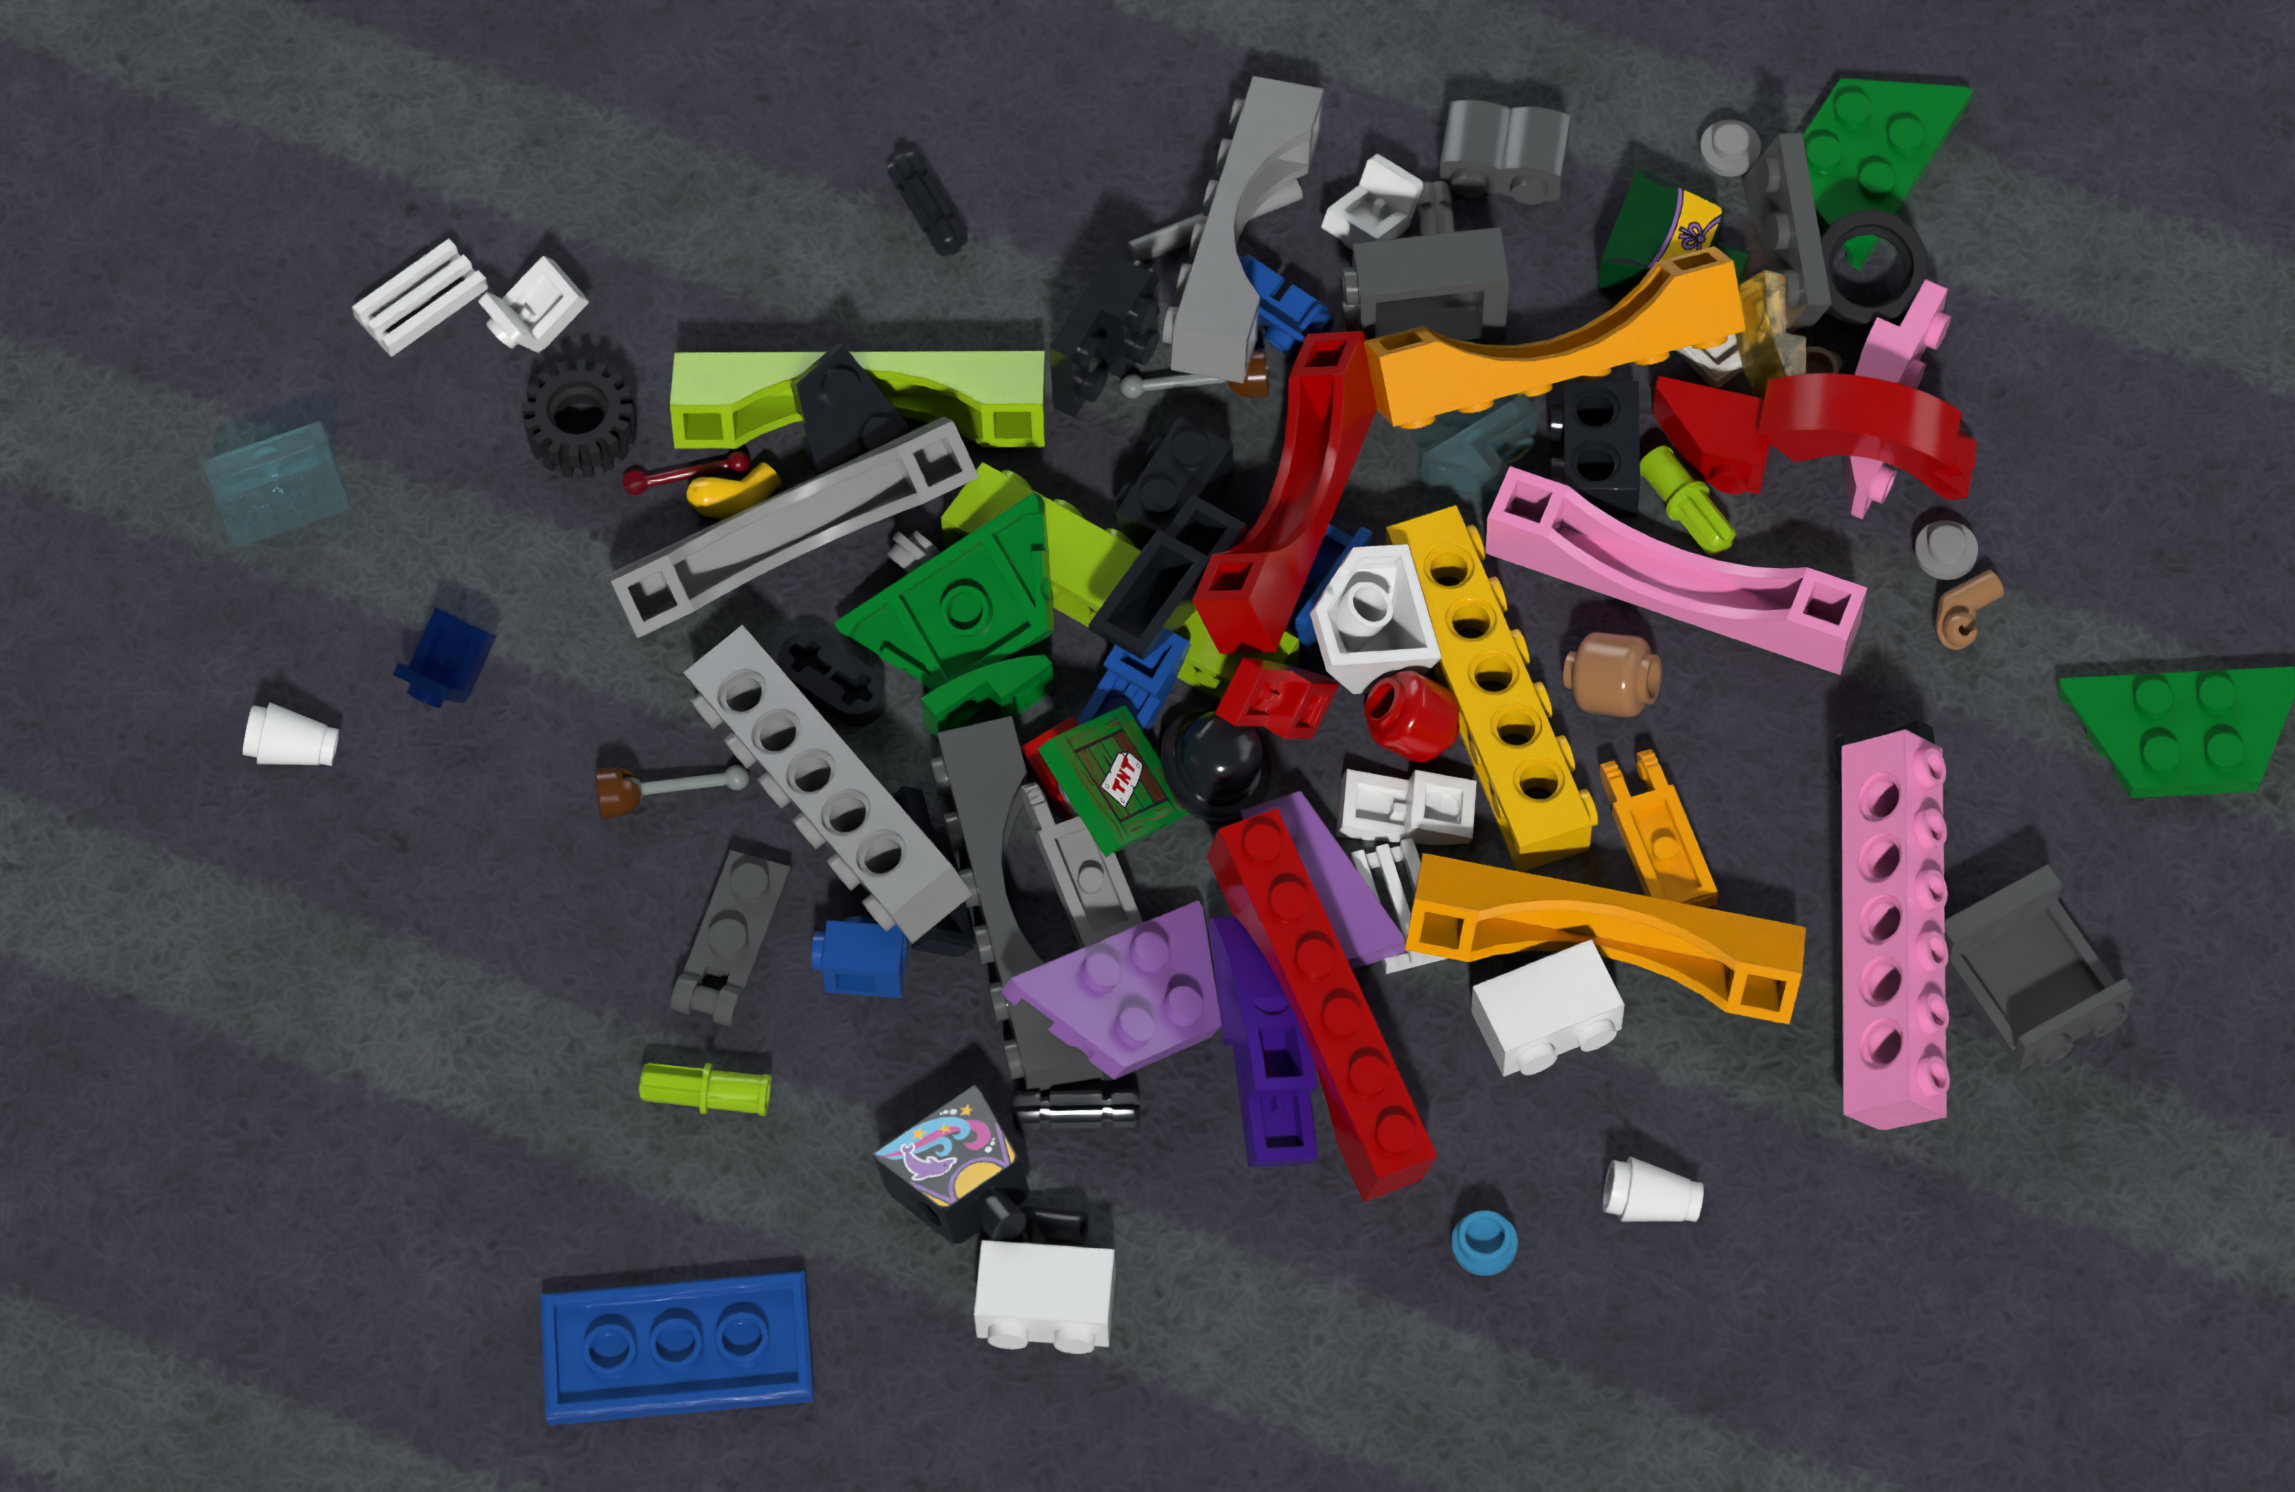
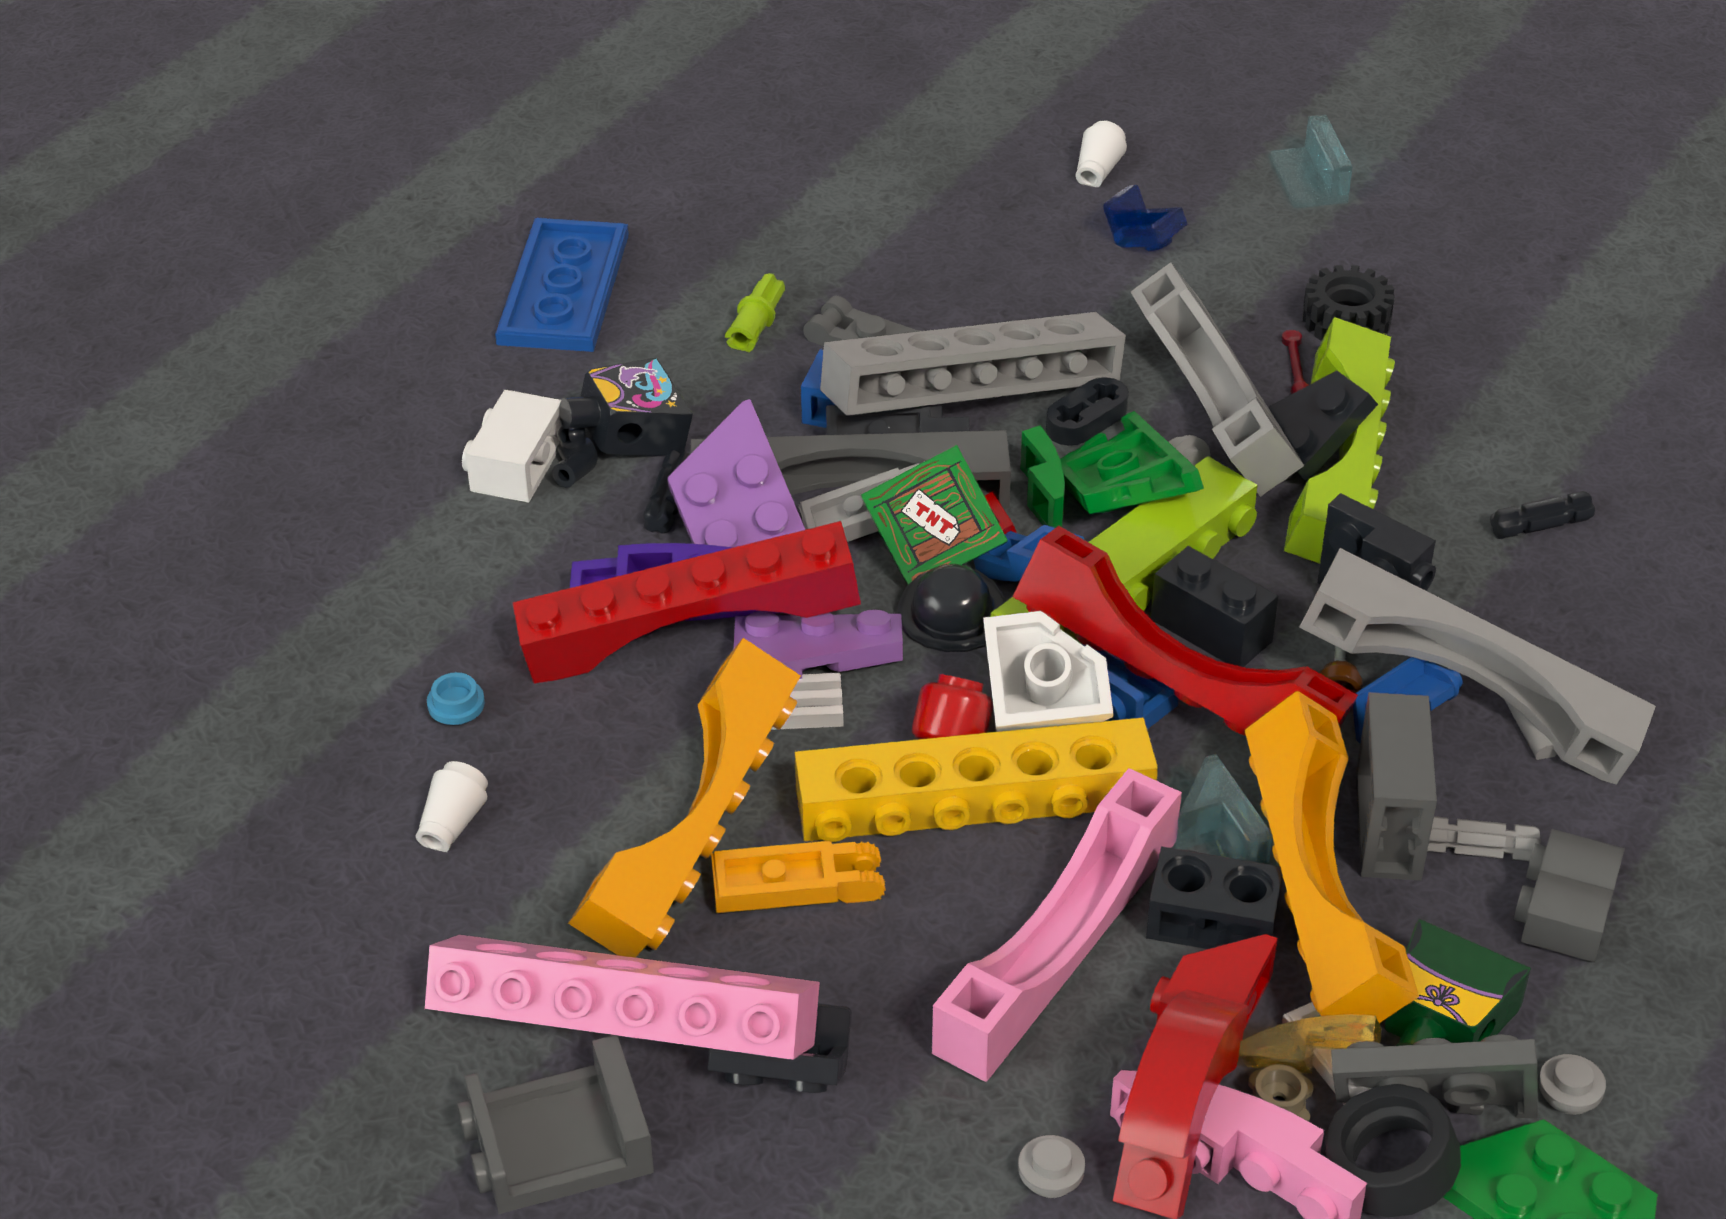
camera: 100 degrees right, 20 degrees down
(459, 266) = (1482, 248): white tile -> none
(535, 307) = (1447, 291): white bracket -> none
(621, 790) = (1007, 295): hinge -> none
(725, 497) = (1264, 373): yellow arm -> none
(1161, 582) = (1147, 576): black slope -> none
(1277, 697) = (983, 594): red slope -> none
(1377, 207) = (1505, 785): white bracket -> none
(1391, 809) = (878, 709): white slope -> none
(1548, 1009) = (645, 765): white brick -> none
(1613, 674) = (965, 867): medium nougat head -> none
(1687, 500) = (1140, 964): lime axle -> none
(1959, 608) = (980, 1164): medium nougat arm -> none

